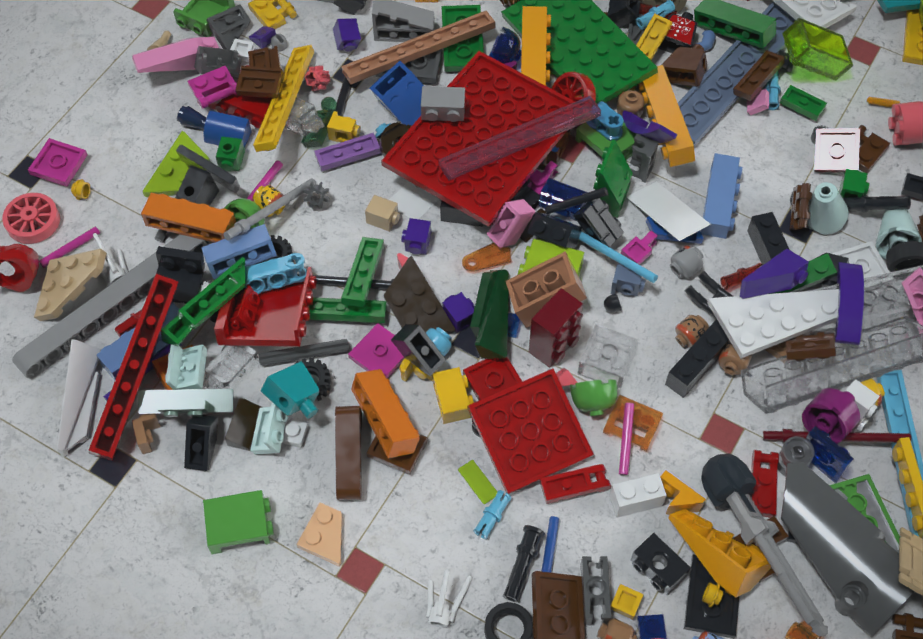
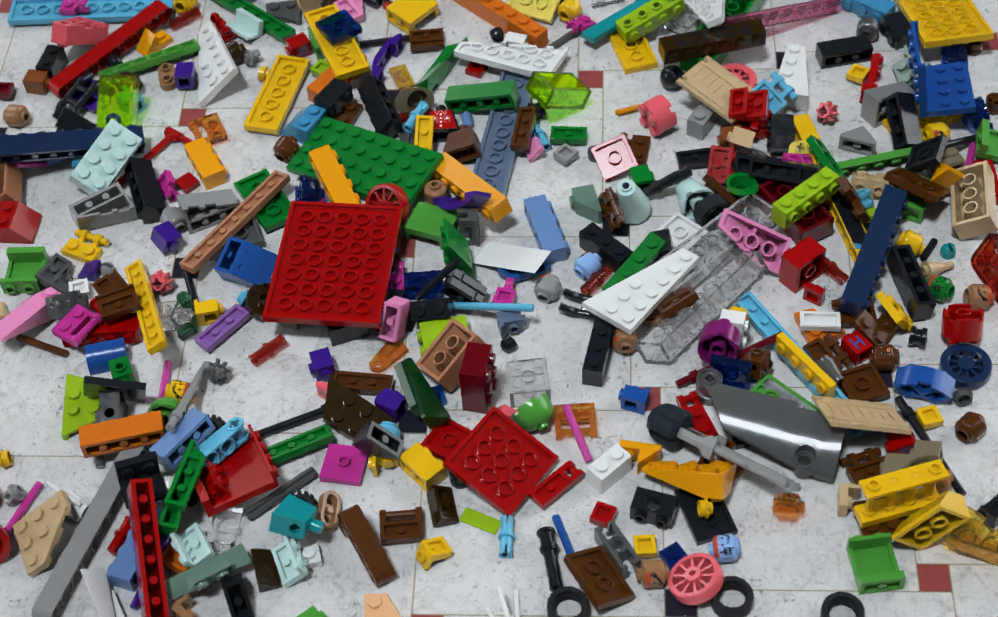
camera: 25 degrees left, 10 degrees down
(70, 230) = (15, 494): none -> light grey plate
(177, 90) = (42, 345): none -> reddish brown bar
(189, 117) = (69, 360): dark blue cone -> none
(334, 394) = (328, 512): none -> medium nougat plate
(362, 272) = (294, 409): green plate -> none
(363, 14) = (175, 217): none -> light grey head
(382, 213) = (282, 360): tan brick -> none
(385, 413) = (379, 502): orange brick -> none
(386, 192) = (267, 350): none -> clear red pin
(411, 491) = (432, 550): none -> yellow bracket
(443, 103) = (288, 251): light grey brick -> none
(446, 274) = (364, 382): none -> reddish brown plate
(449, 447) = (442, 506): none -> dark brown slope
(519, 138) = (366, 250): clear pink plate -> none
(603, 542) = (603, 514): none -> red plate
(608, 123) = (423, 210): dark azure piece -> none
(690, 330) = (580, 335): medium nougat head -> none
(708, 430) = (634, 398): none -> blue brick
(742, 256) = (587, 264): none -> light blue head
(776, 275) = (623, 262): dark purple slope -> none
(779, 186) = (586, 203): none -> sand green slope
(788, 122) = (565, 154): none -> light grey plate
(850, 303) = (689, 258): dark purple slope -> none
(865, 456) = (761, 362): none -> reddish brown brick

